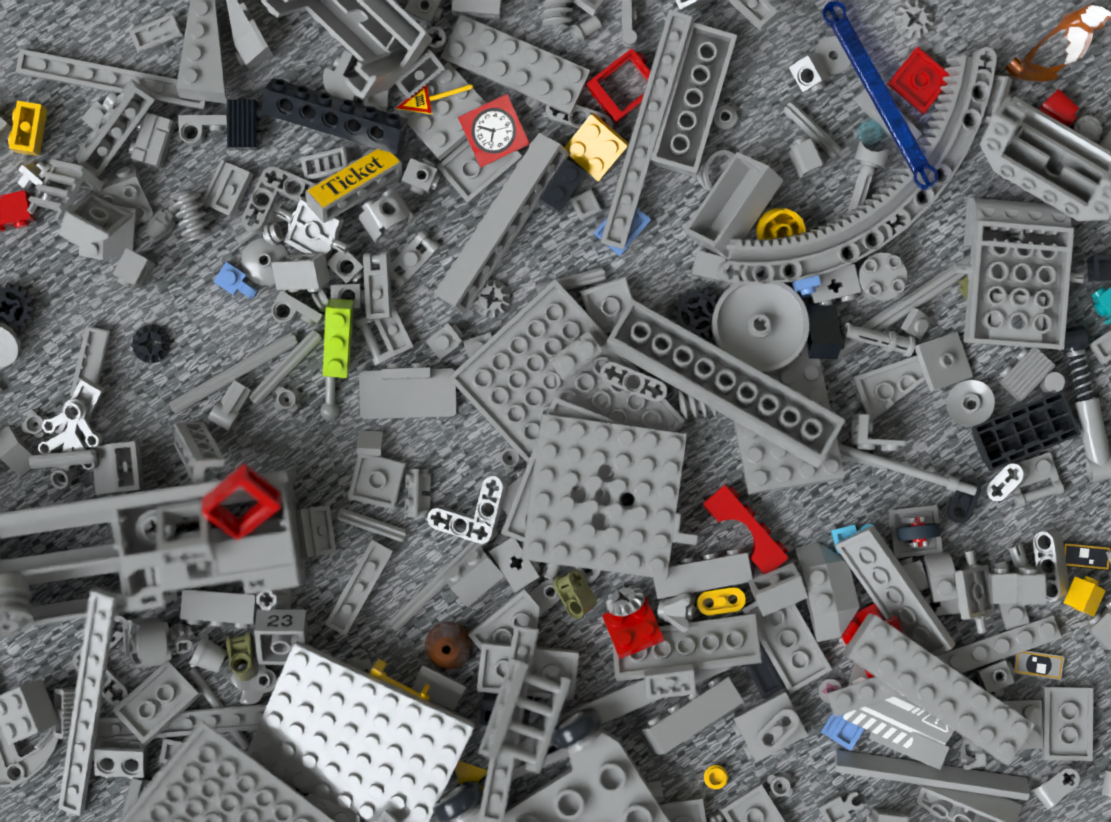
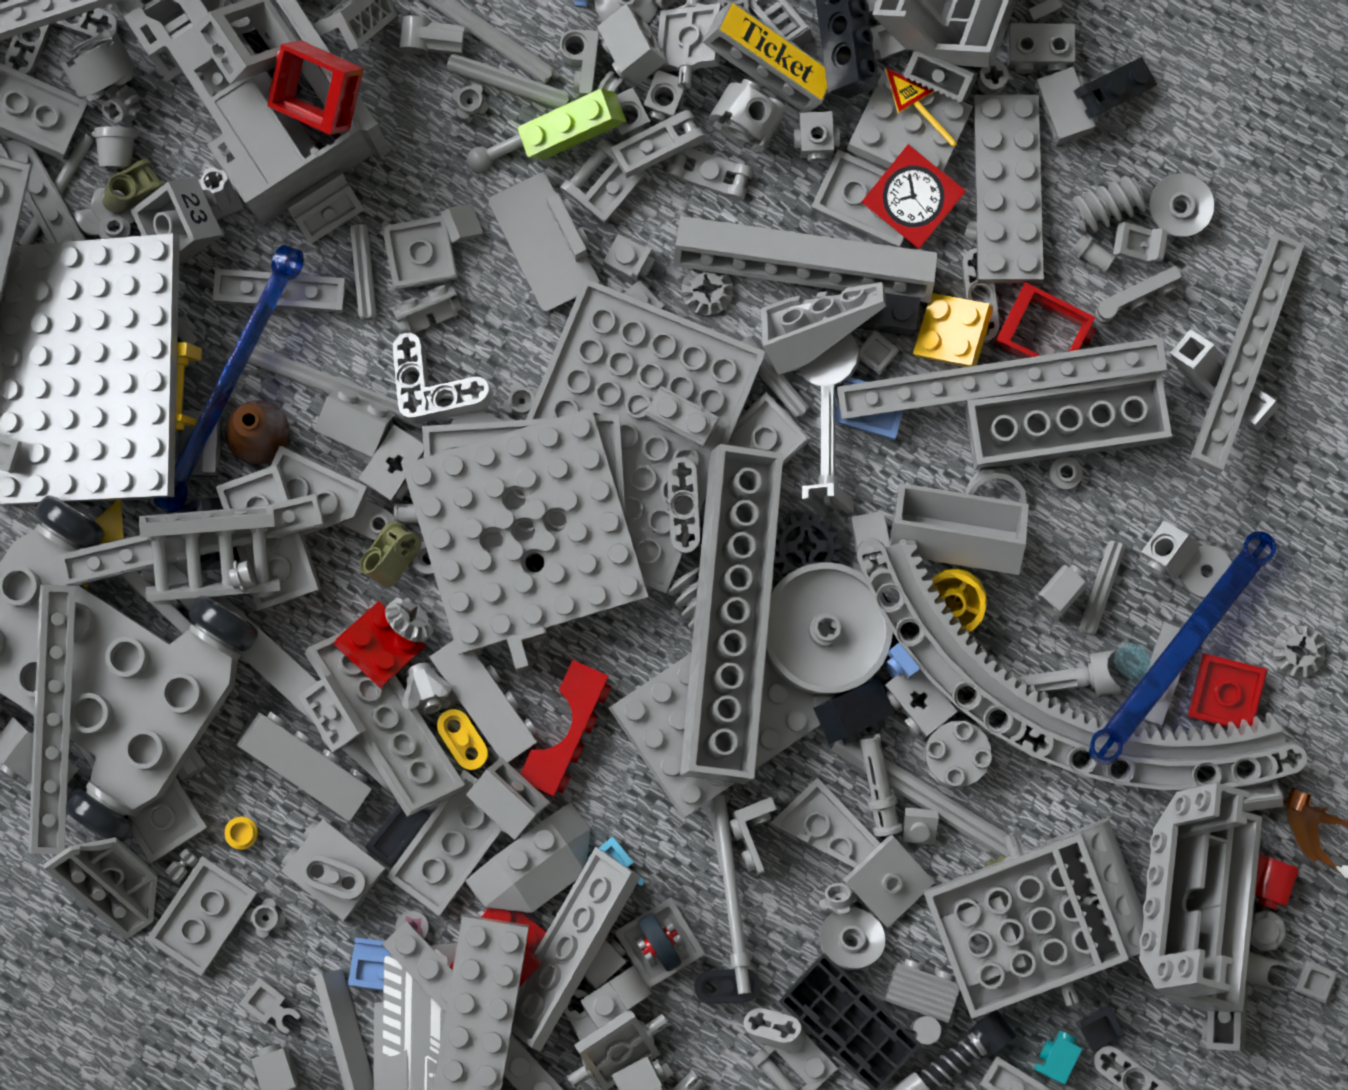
camera: 70 degrees right, 5 degrees down
(218, 608) = (177, 131): light grey brick -> none
(347, 576) = (281, 274): none -> clear blue piece
(551, 242) = (802, 330): none -> light grey wedge
(551, 701) = (242, 576): none -> light grey plate
(577, 239) = (827, 372): none -> light grey piece
(935, 397) = (838, 899): none -> light grey plate

